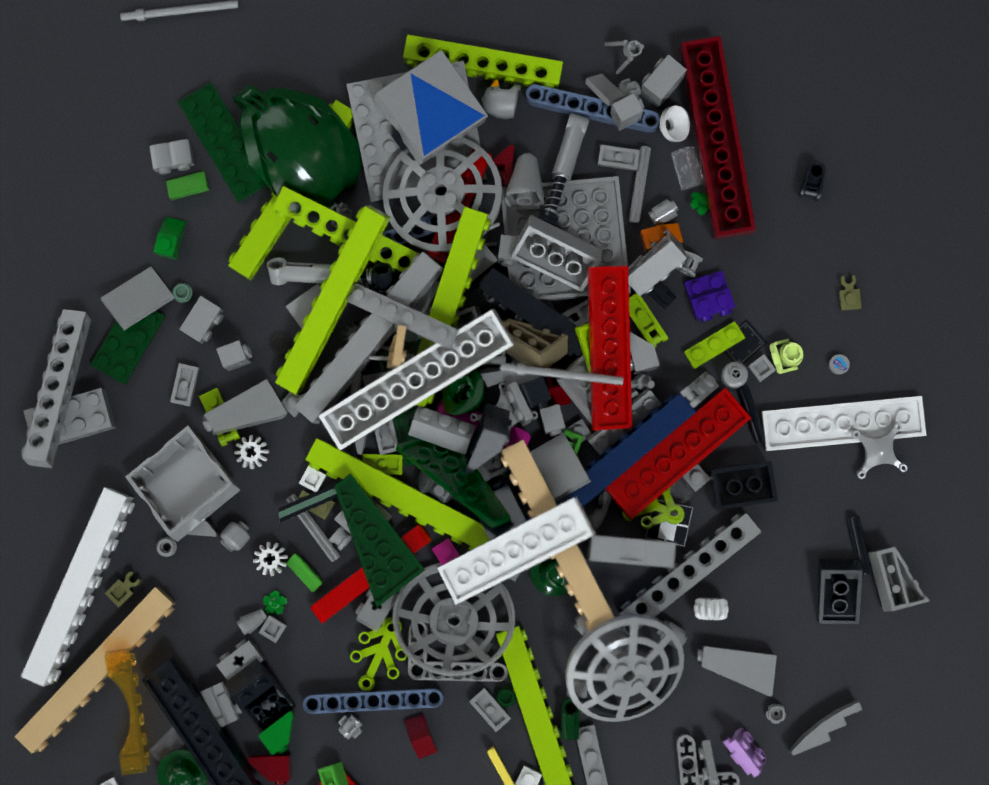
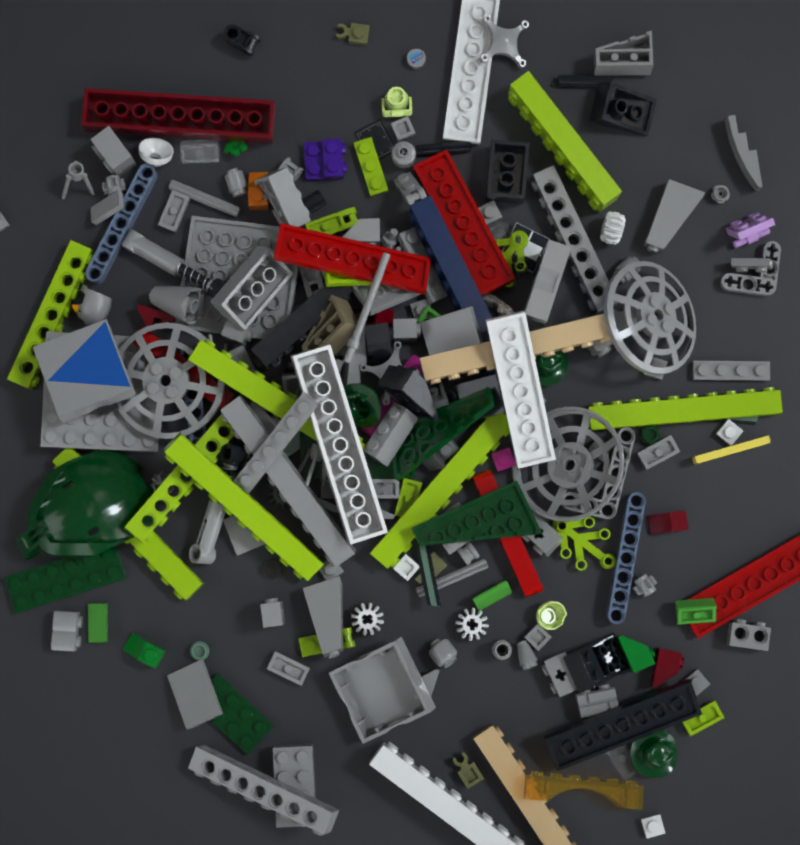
camera: 80 degrees left, 0 degrees up
(160, 546) = (432, 724): light grey plate -> none
(202, 320) = (231, 637): light grey brick -> none
(245, 597) = (507, 652): none -> light grey brick
(275, 603) = (513, 630): green plant -> none
(297, 637) = (551, 615): none -> yellowish green hair
(396, 353) = (309, 457): tan wing -> none
(521, 410) = (389, 354): light grey plate -> none
(569, 722) = (687, 381): dark green piece -> none
(627, 111) = (134, 190): light grey brick -> none
(788, 537) = (563, 142): none -> lime brick

